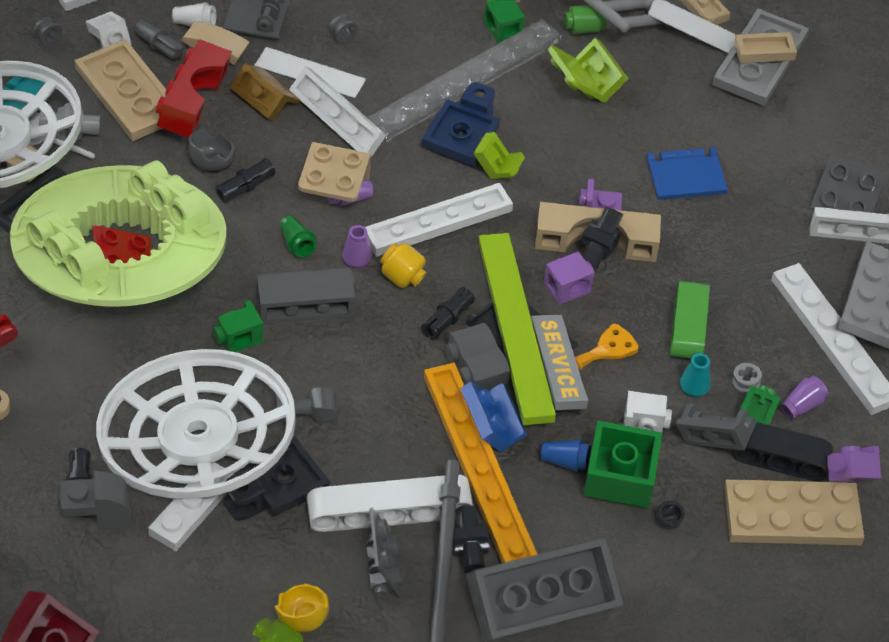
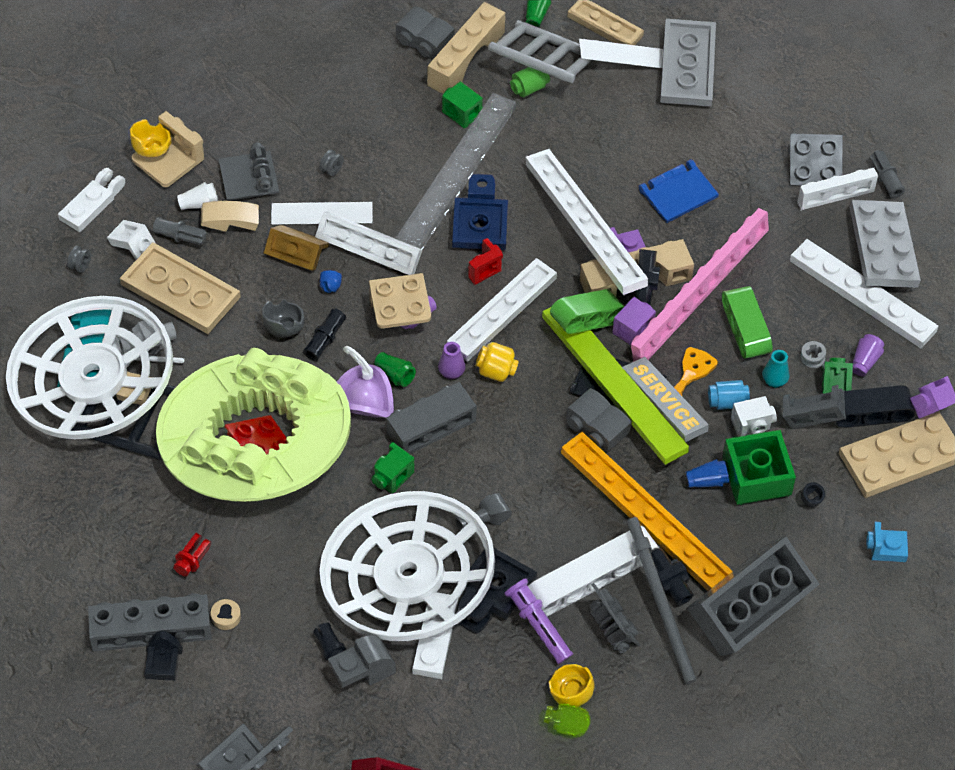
camera: 20 degrees left, 5 degrees up
(182, 105) = (242, 288): red arch -> none
(254, 243) = (367, 388): none -> lavender hat
(280, 134) = (330, 281): none -> blue hinge
(300, 514) = (560, 651): none -> medium lavender pin
(445, 171) = (485, 264): none -> red bracket
(448, 313) = (552, 390): black pin -> none
(494, 415) = (638, 464): blue bracket -> none
(496, 158) = (523, 238): lime bracket -> none
(519, 247) = (586, 311): none -> bright green beam
(567, 166) = (587, 222): none -> white plate
(591, 71) = (559, 127): lime bracket -> none
(629, 379) = (726, 393): none -> dark azure brick
(658, 268) = (702, 284): none -> bright pink plate
(727, 596) = (887, 544): none -> dark azure bracket
(765, 47) = (690, 54): tan tile -> none

